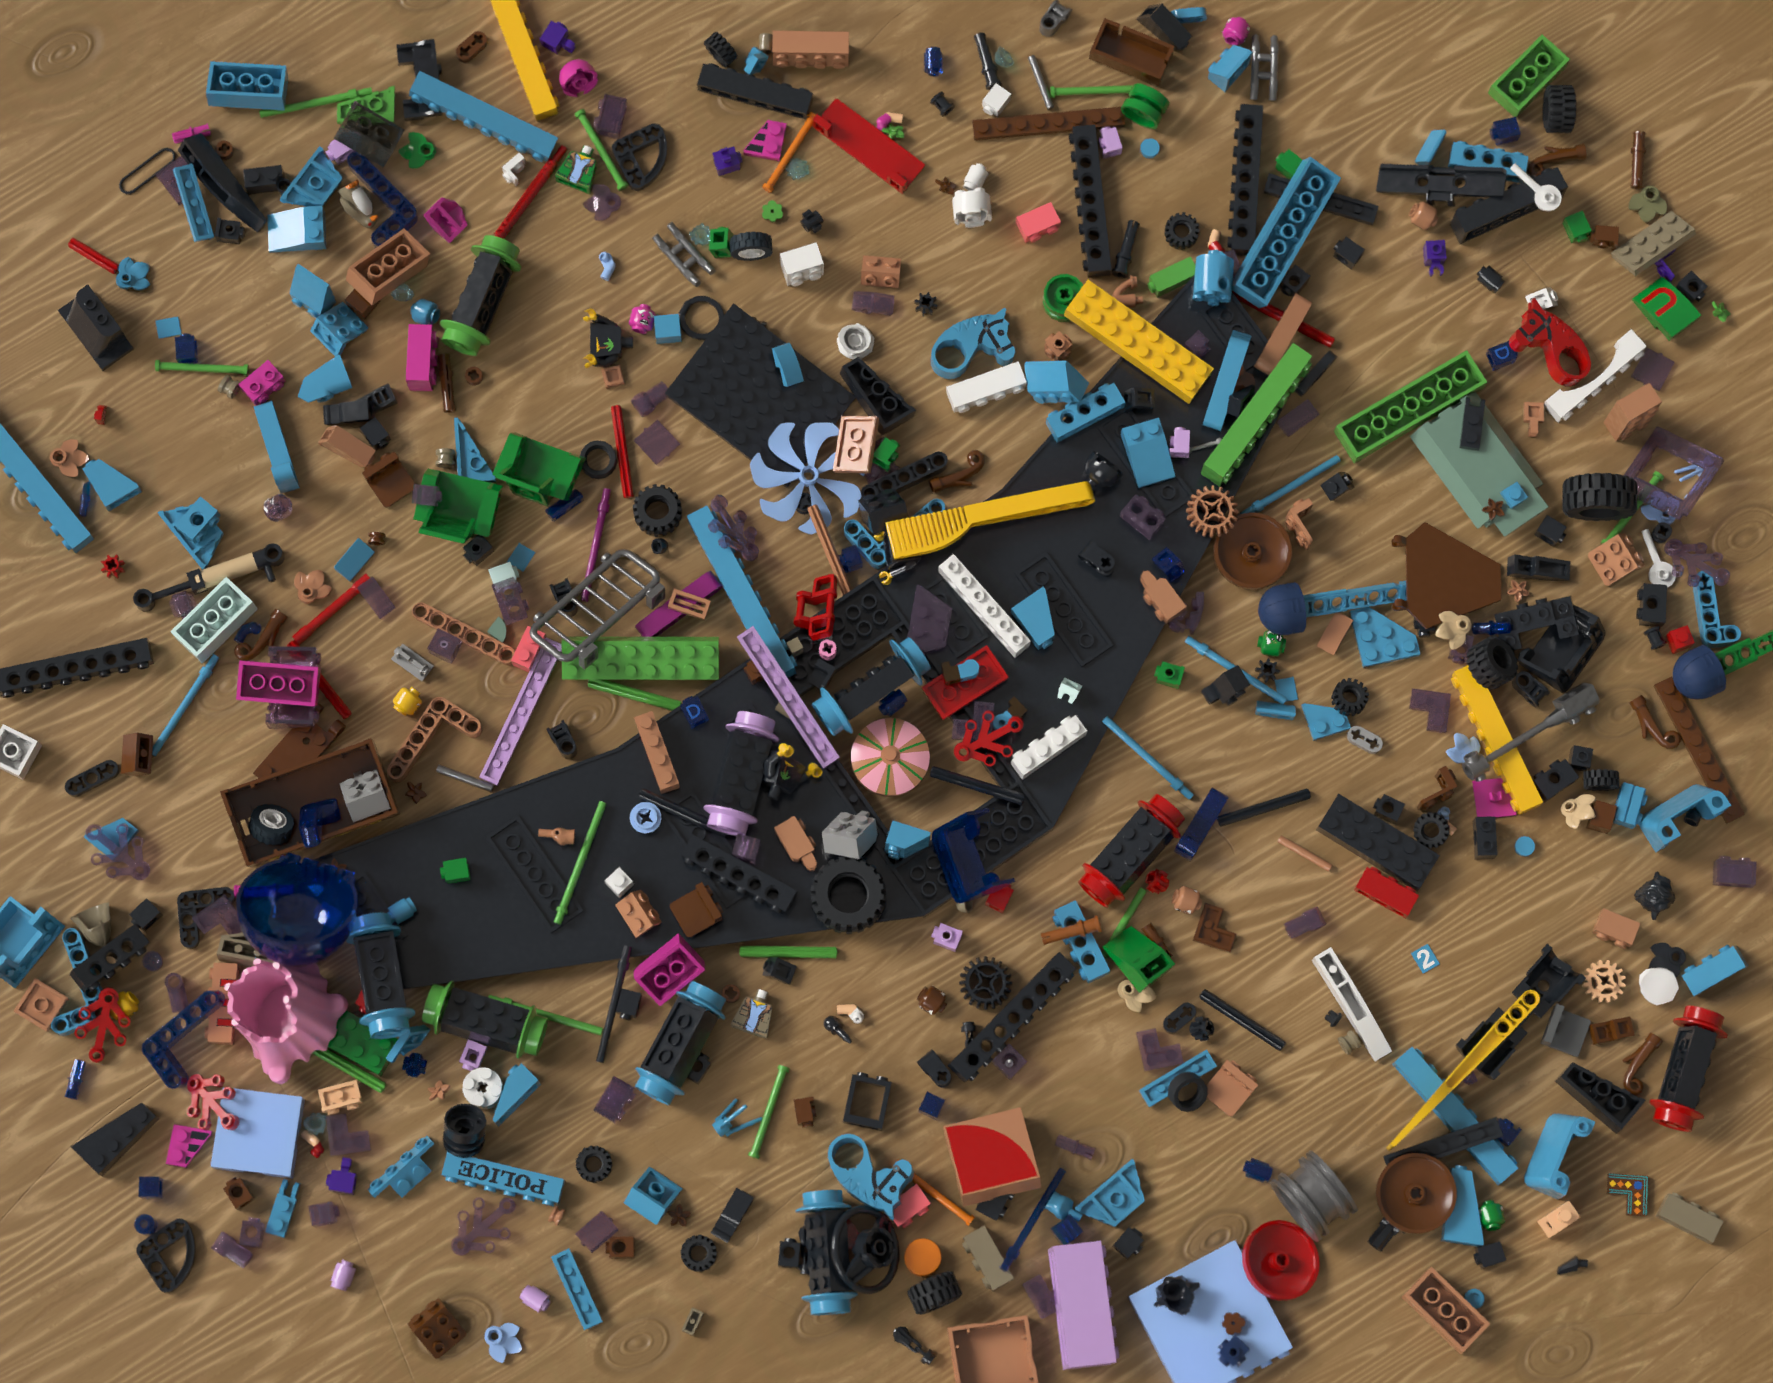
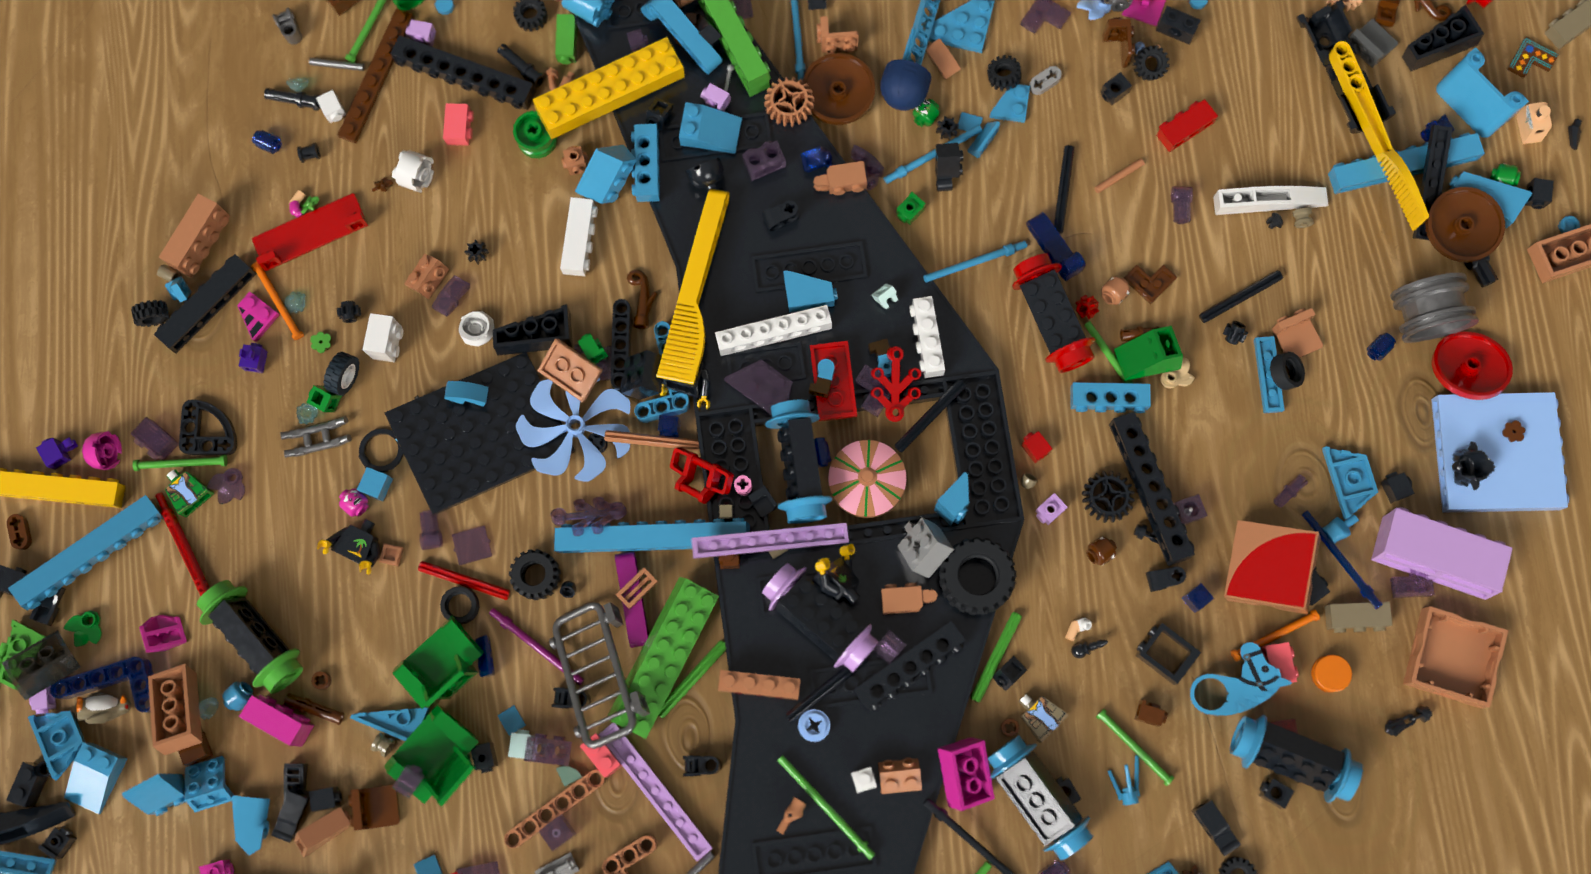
camera: 55 degrees left, 0 degrees up
(376, 538) = (423, 846): reddish brown bush -> none
(515, 165) = (149, 546): white bracket -> none
(608, 264) = (287, 508): light blue arm -> none
(628, 1004) = (977, 826): black brick -> none
(693, 711) = (738, 632): clear blue brick -> none
(696, 910) = (923, 721): reddish brown bracket -> none
(803, 1237) = (1262, 771): black piece -> none
(872, 1250) = (1317, 716): black piece -> none
(934, 1292) = (1374, 678): black tyre -> none
(961, 859) = (995, 462): clear blue windscreen -> none
(975, 177) = (388, 156): white brick -> none
(975, 334) = (525, 225): dark azure animal -> none
(1066, 1230) = (1364, 535): clear blue piece -> none
(1081, 928) = (1103, 388): dark orange pin -> none
(1153, 1055) = (1237, 385): plate -> none
(1182, 1021) = (1219, 347): black beam -> none
(1239, 1348) = (1543, 443): dark blue brick -> none
(1377, 842) = (1140, 111): black brick -> none
(1425, 958) = (1256, 124): dark azure sticker -> none

